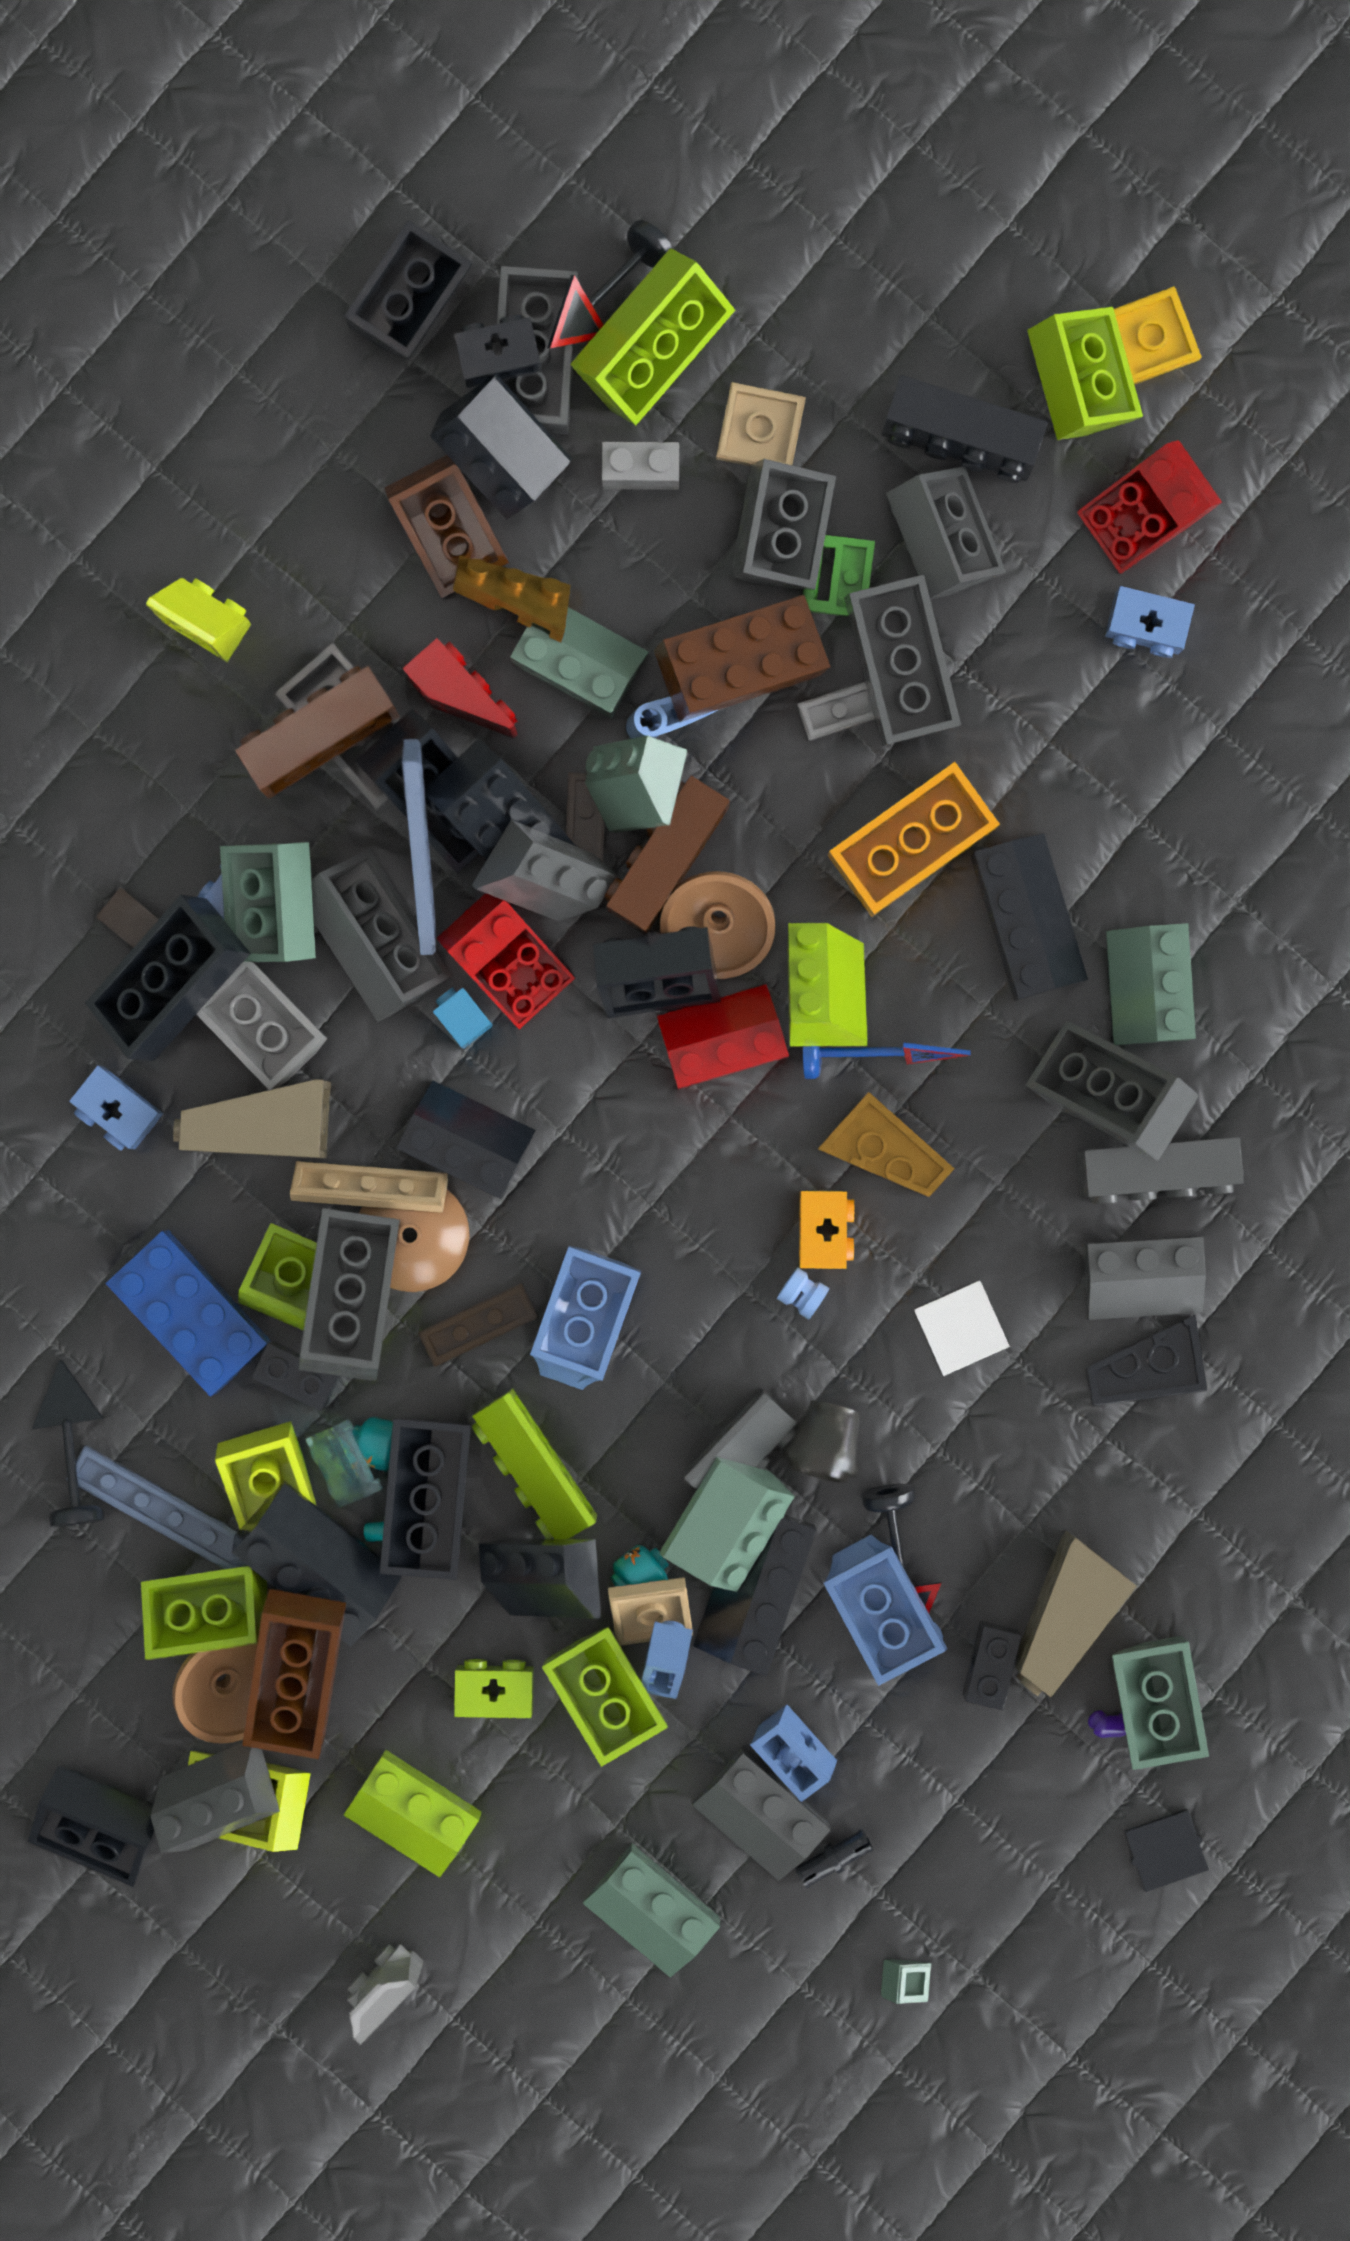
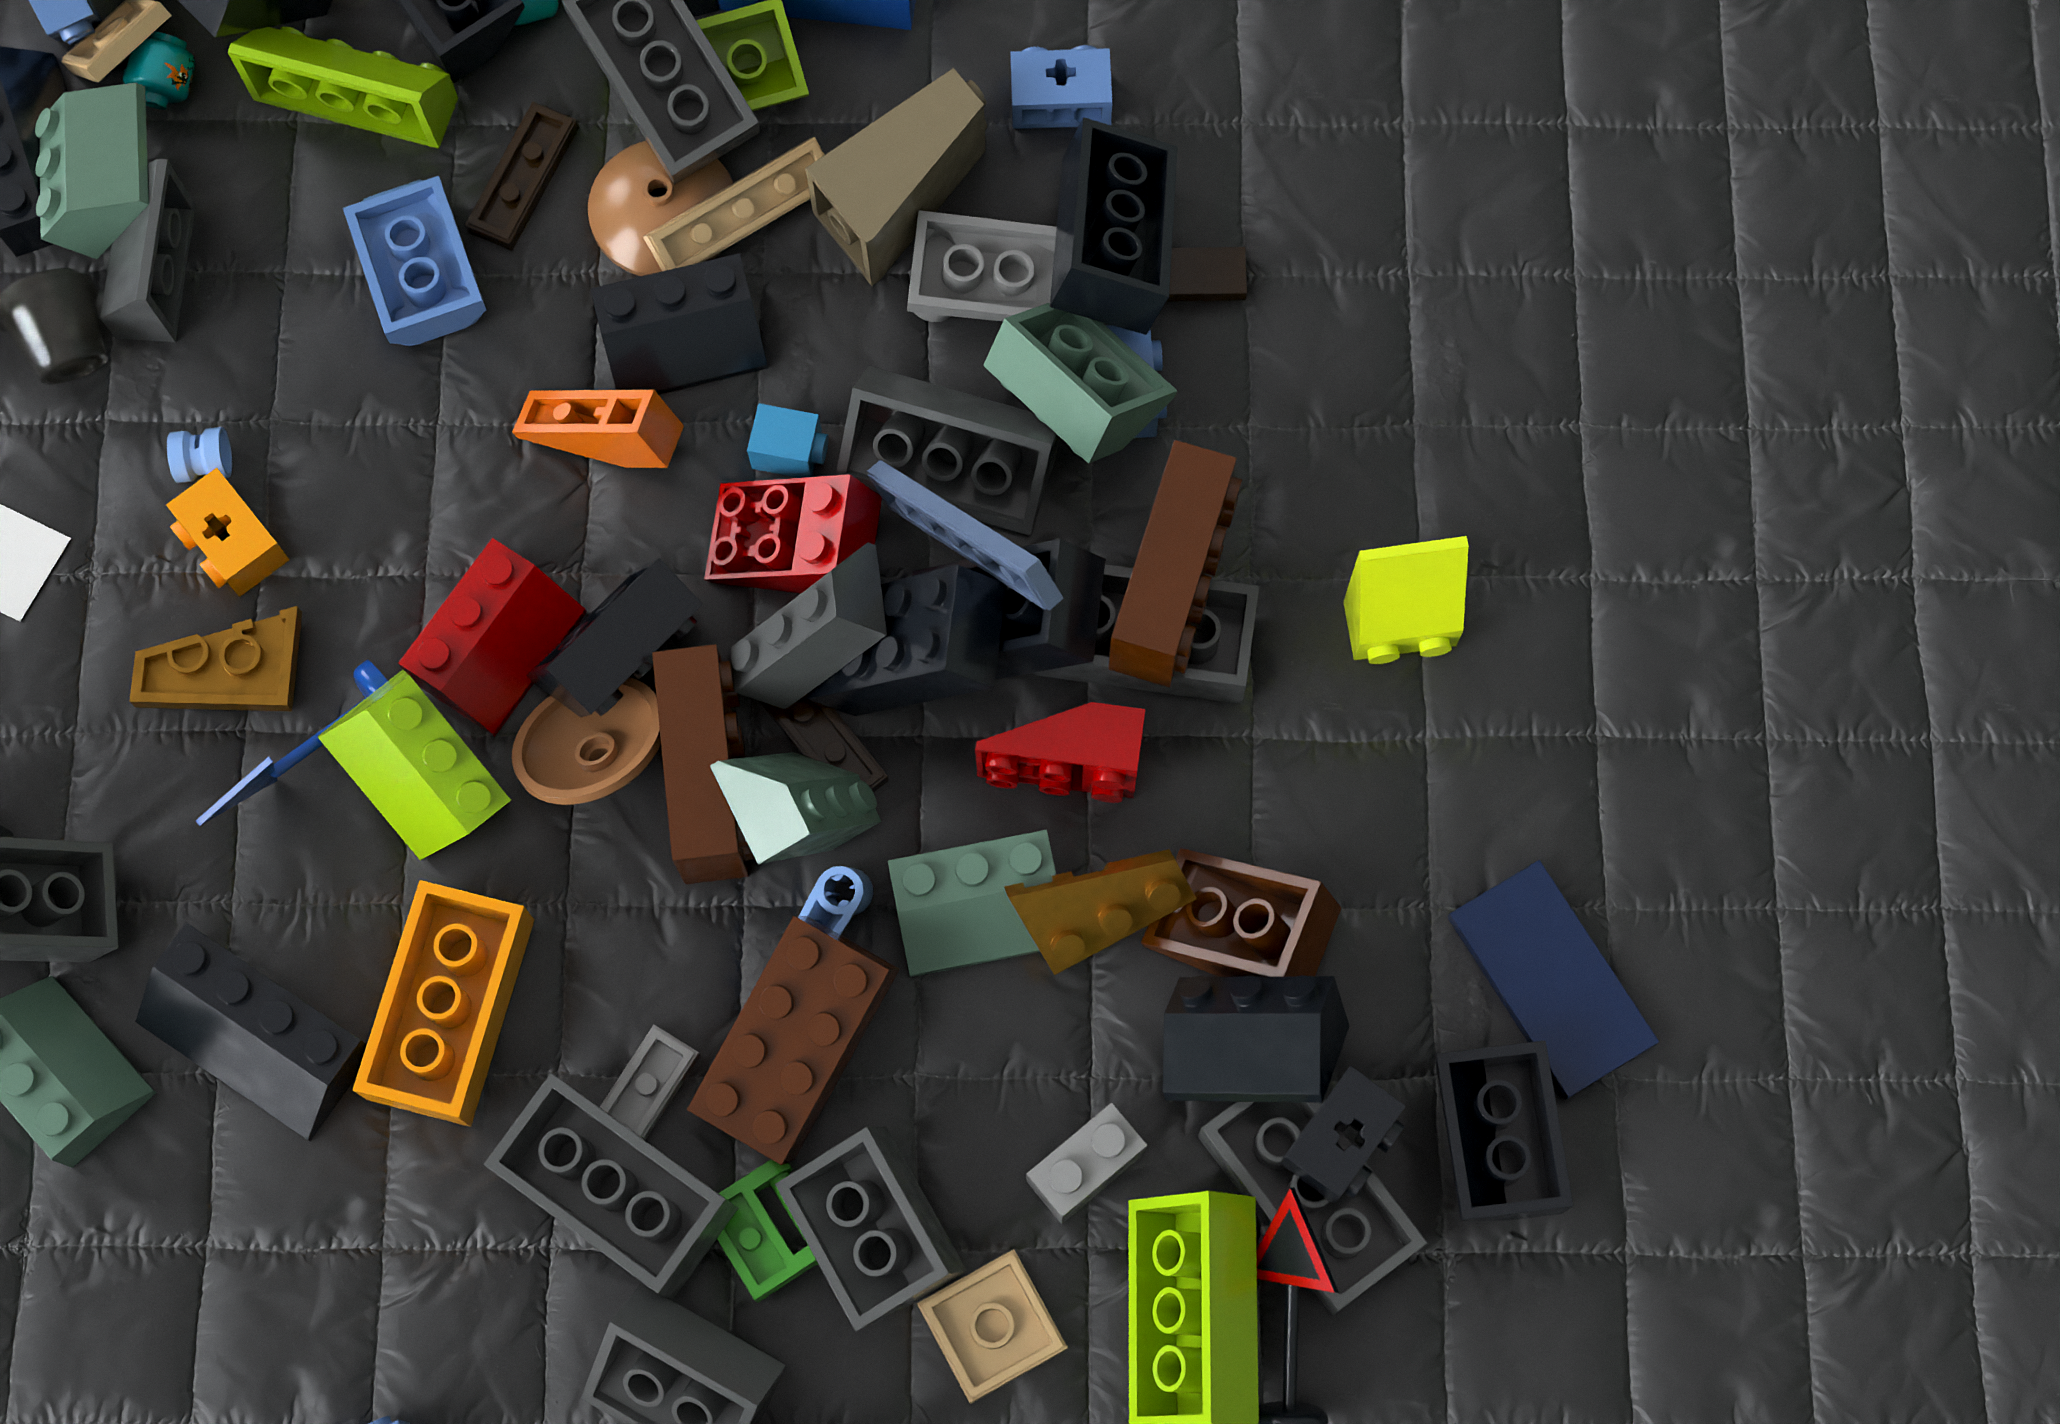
camera: 140 degrees right, 15 degrees down
(303, 356) = (1552, 978): none -> dark blue tile
(561, 1118) = (603, 425): none -> orange slope

